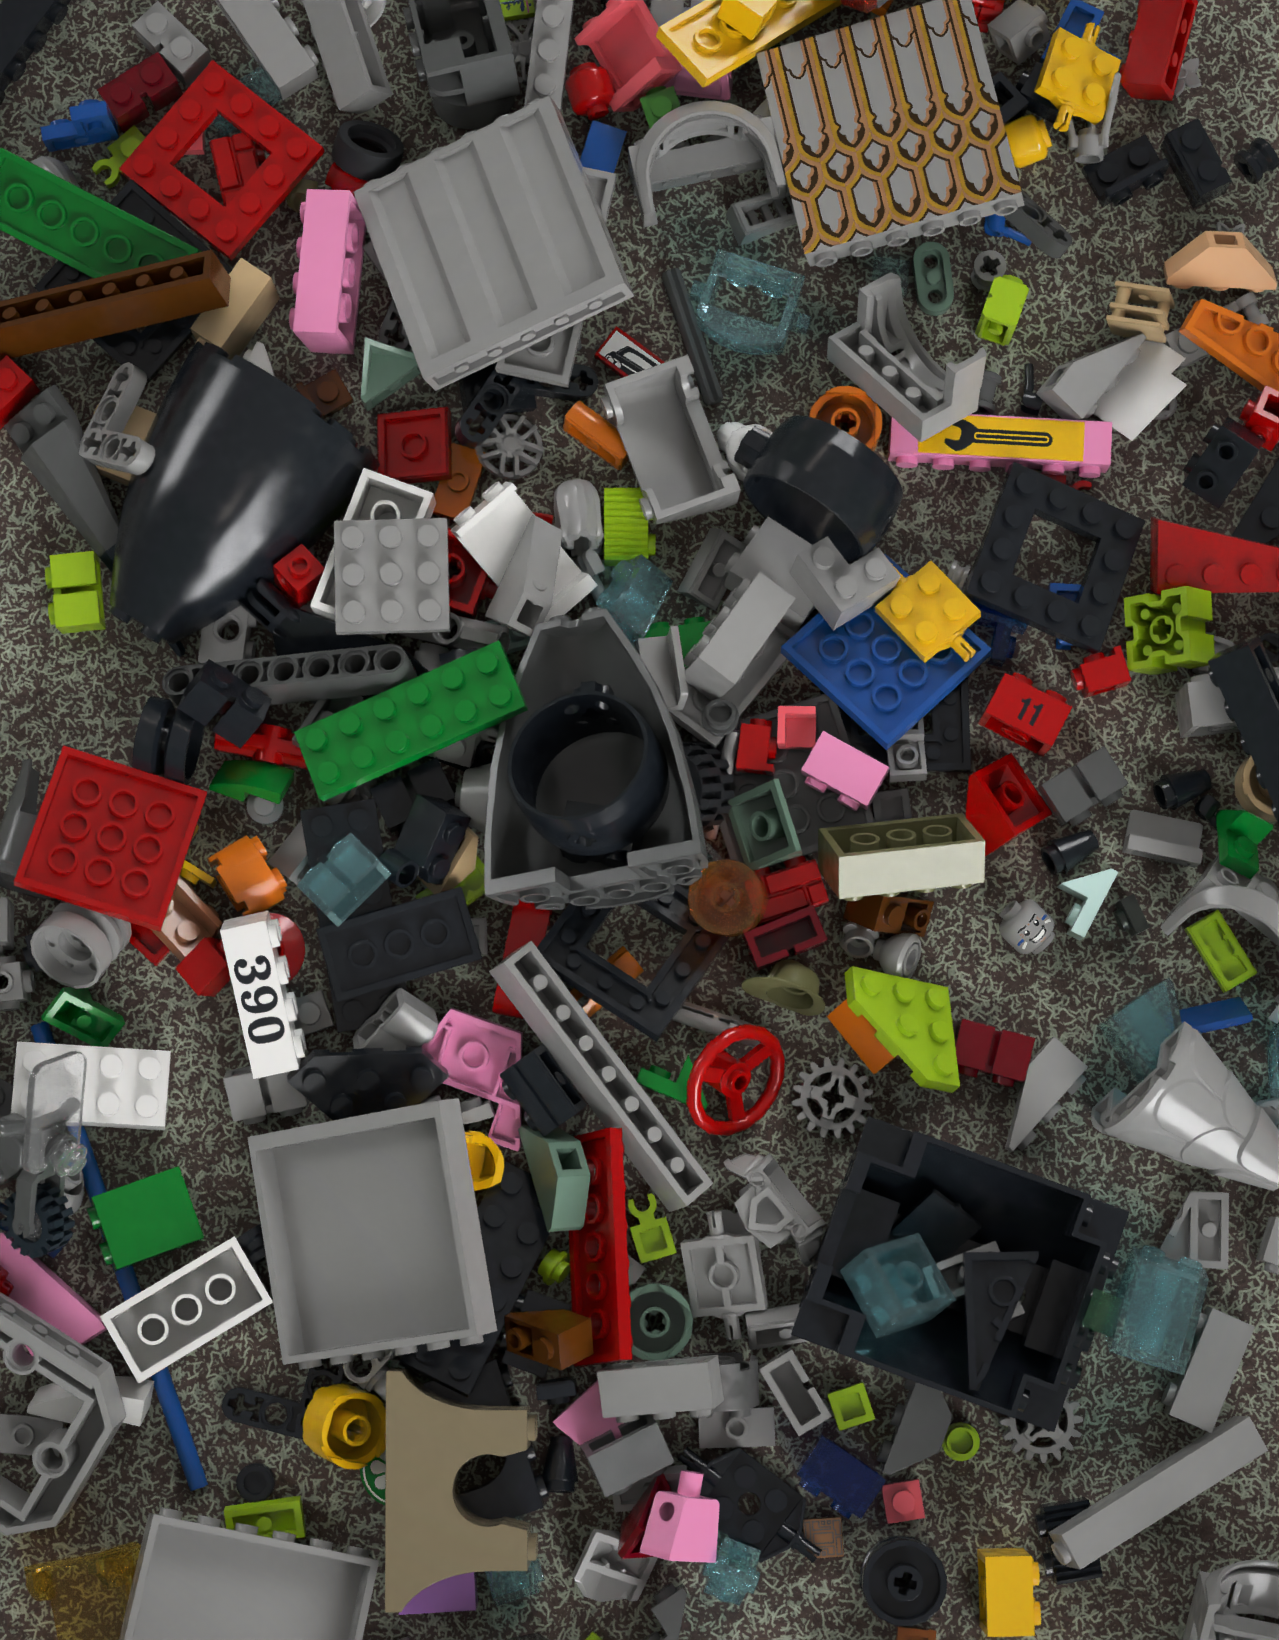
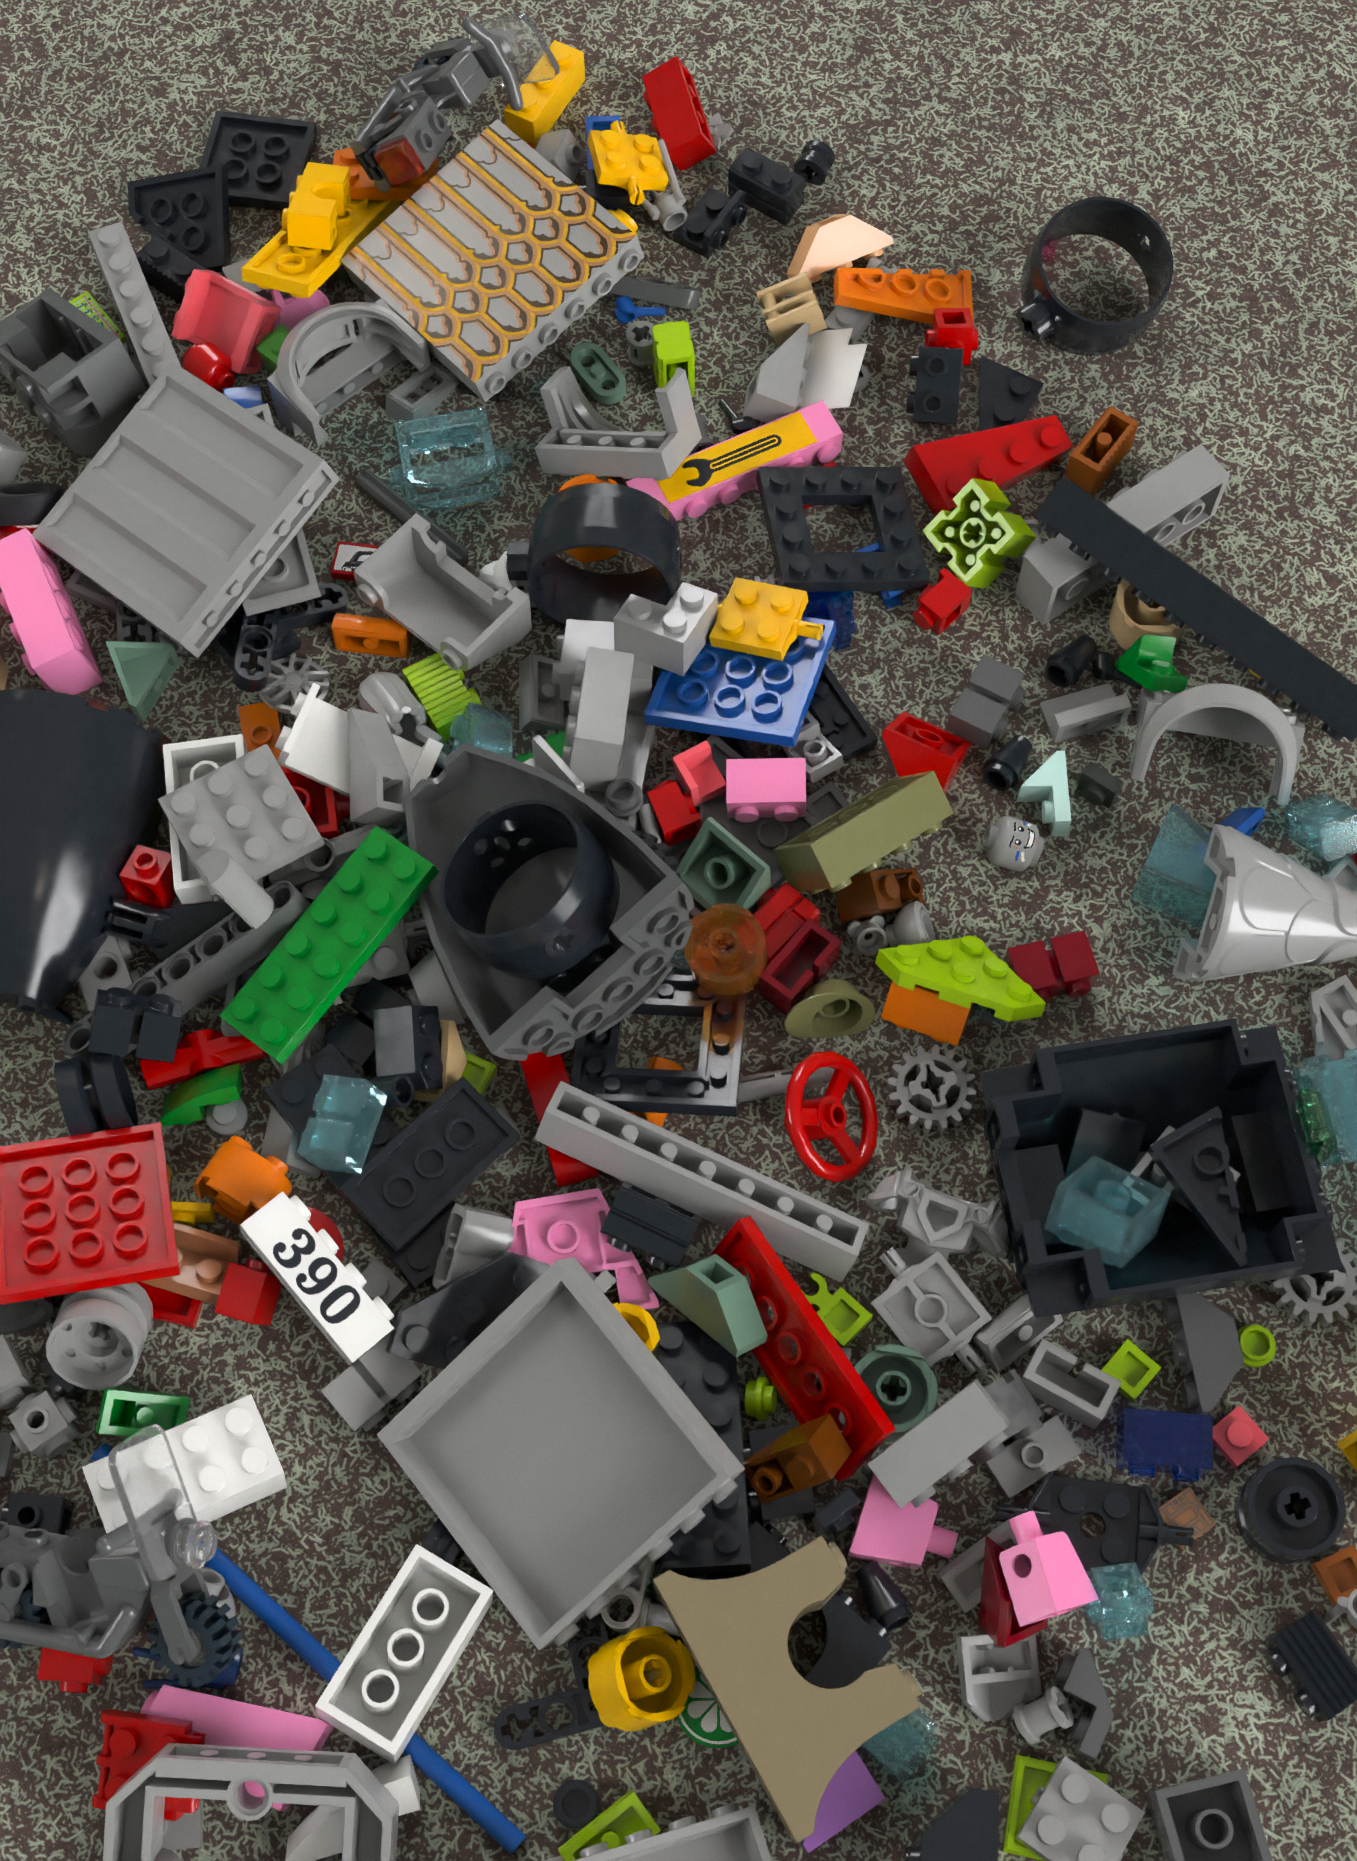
camera: 30 degrees left, 15 degrees down
(145, 1219) = (312, 1585): green brick -> none
(355, 641) = (236, 887): none -> light grey brick
(415, 445) = (204, 715): red tile -> none
(626, 1617) = (1043, 1715): none -> light grey bush
(630, 1458) = (954, 1531): dark grey piece -> none
(658, 1081) = (776, 1163): green slope -> none
(1025, 713) = (898, 663): red brick -> none
(1048, 1078) = (1120, 956): light grey slope -> none
(1220, 951) = (1196, 776): lime plate -> none

